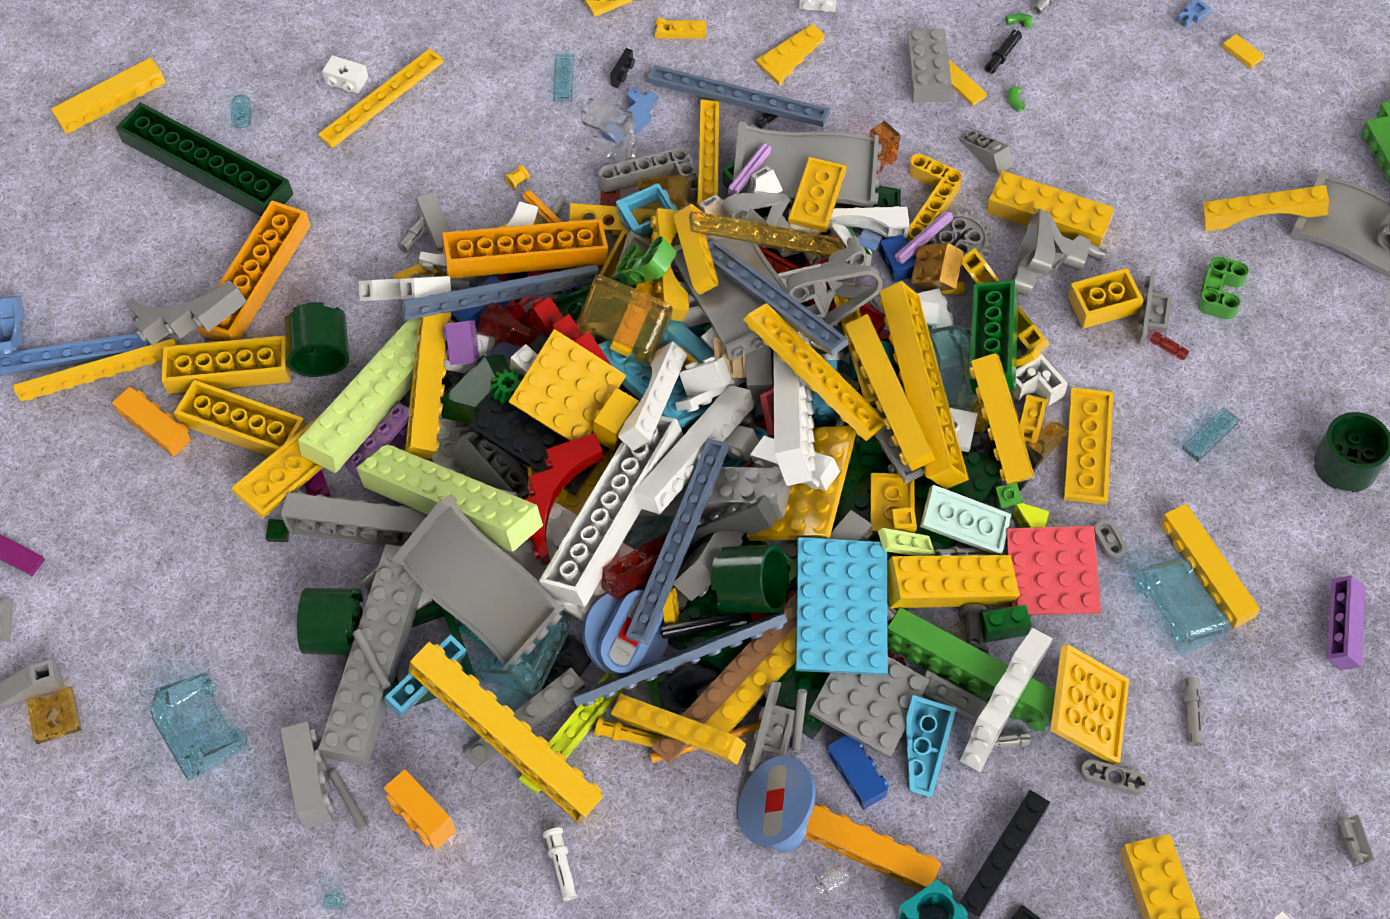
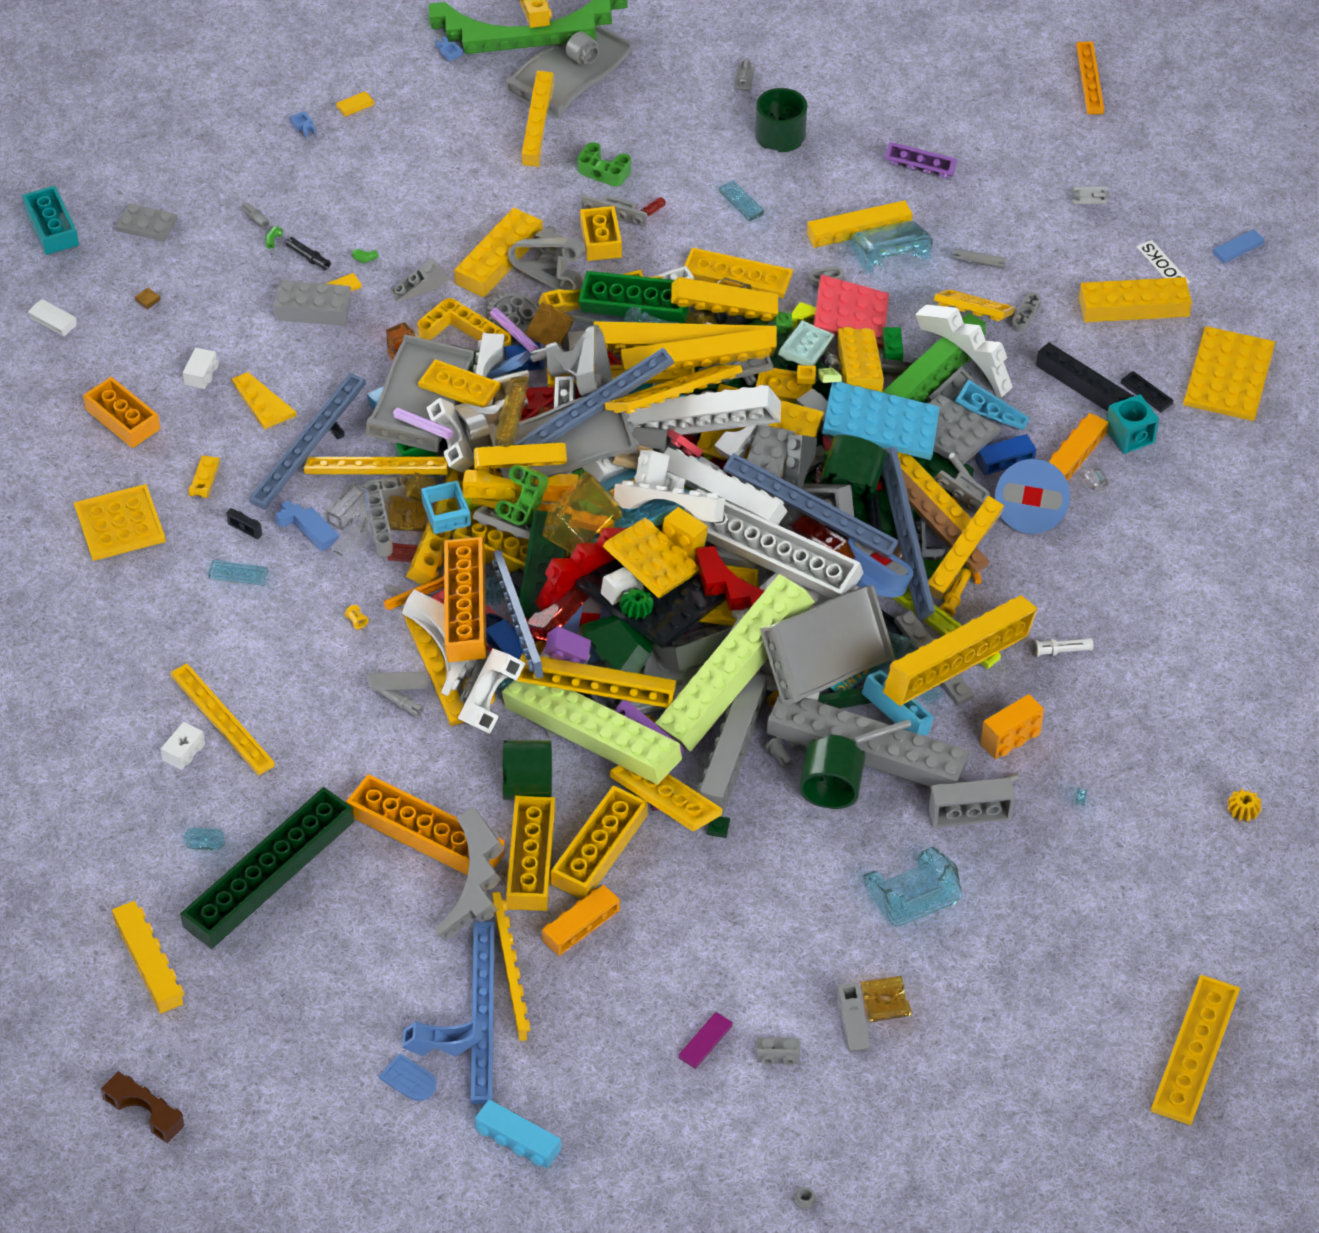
camera: 85 degrees left, 10 degrees down
(1358, 116) = (449, 50): none -> medium blue plate

